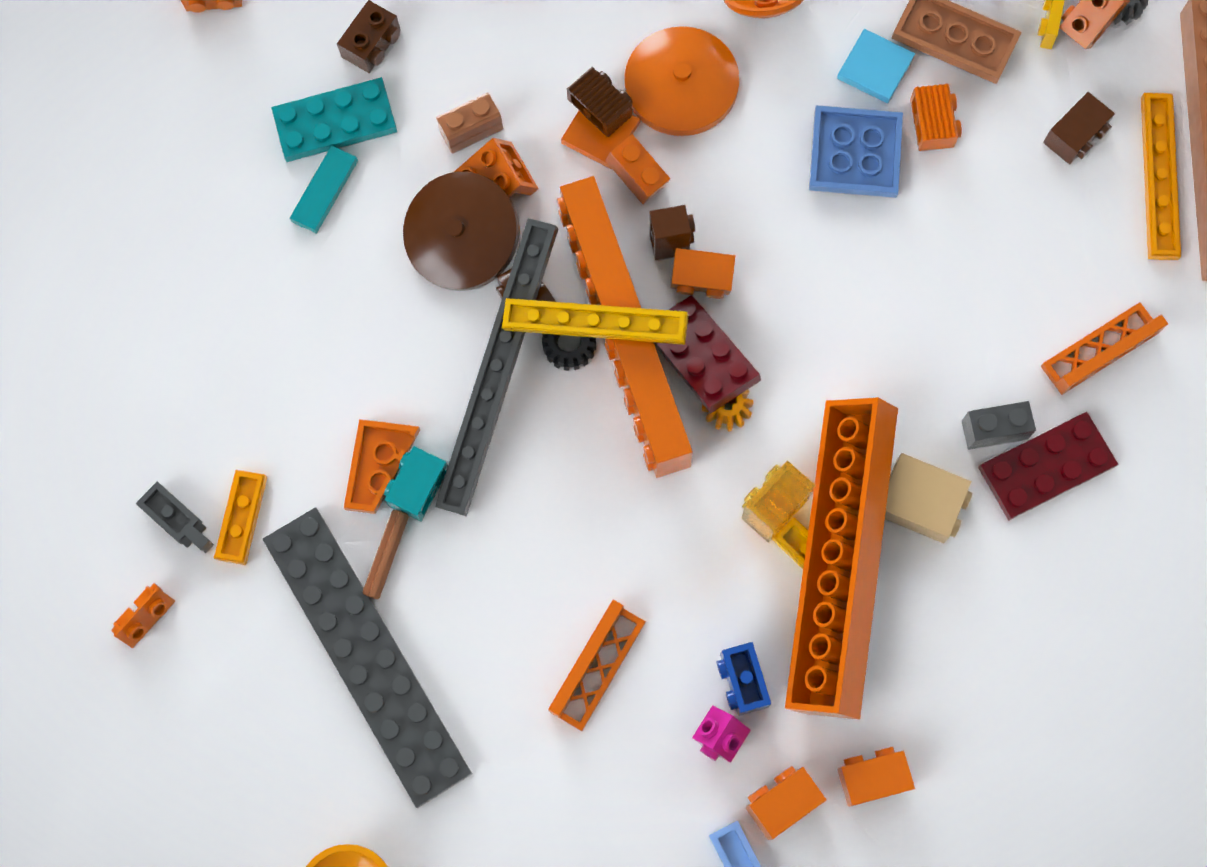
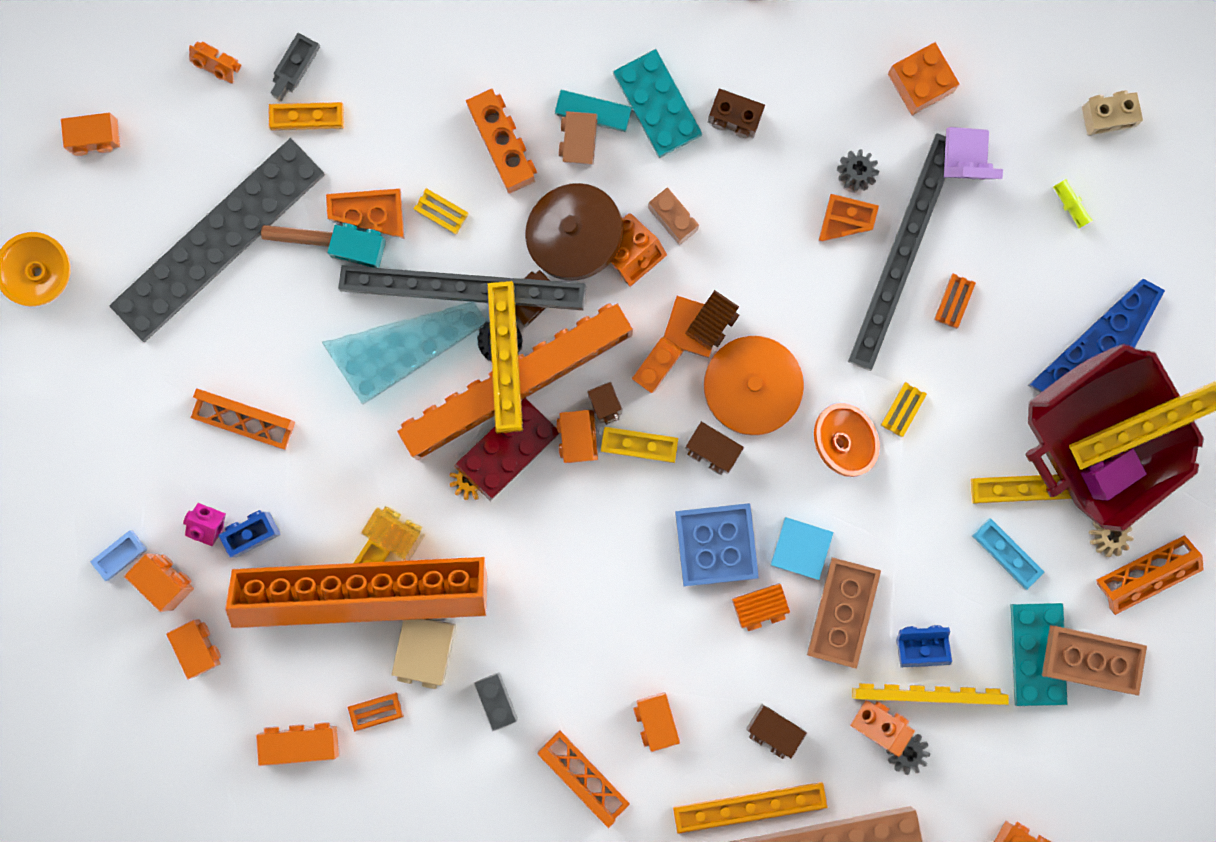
camera: 75 degrees right, 10 degrees up
(189, 788) = (90, 133): none -> orange brick
(348, 300) = (512, 177): none -> orange brick
(352, 204) = (578, 137): none -> nougat brick
(390, 372) = (423, 201): none -> yellow tile
(554, 469) = (392, 351): none -> clear light blue wing
(724, 211) = (639, 444): none -> yellow plate
(746, 130) = (713, 448): none -> reddish brown brick
(975, 575) = (397, 706): none -> orange tile
(1015, 672) = (297, 744): none -> orange brick
(1047, 466) = (473, 747): dark red plate -> none
(1049, 251) = (657, 722): none -> orange brick

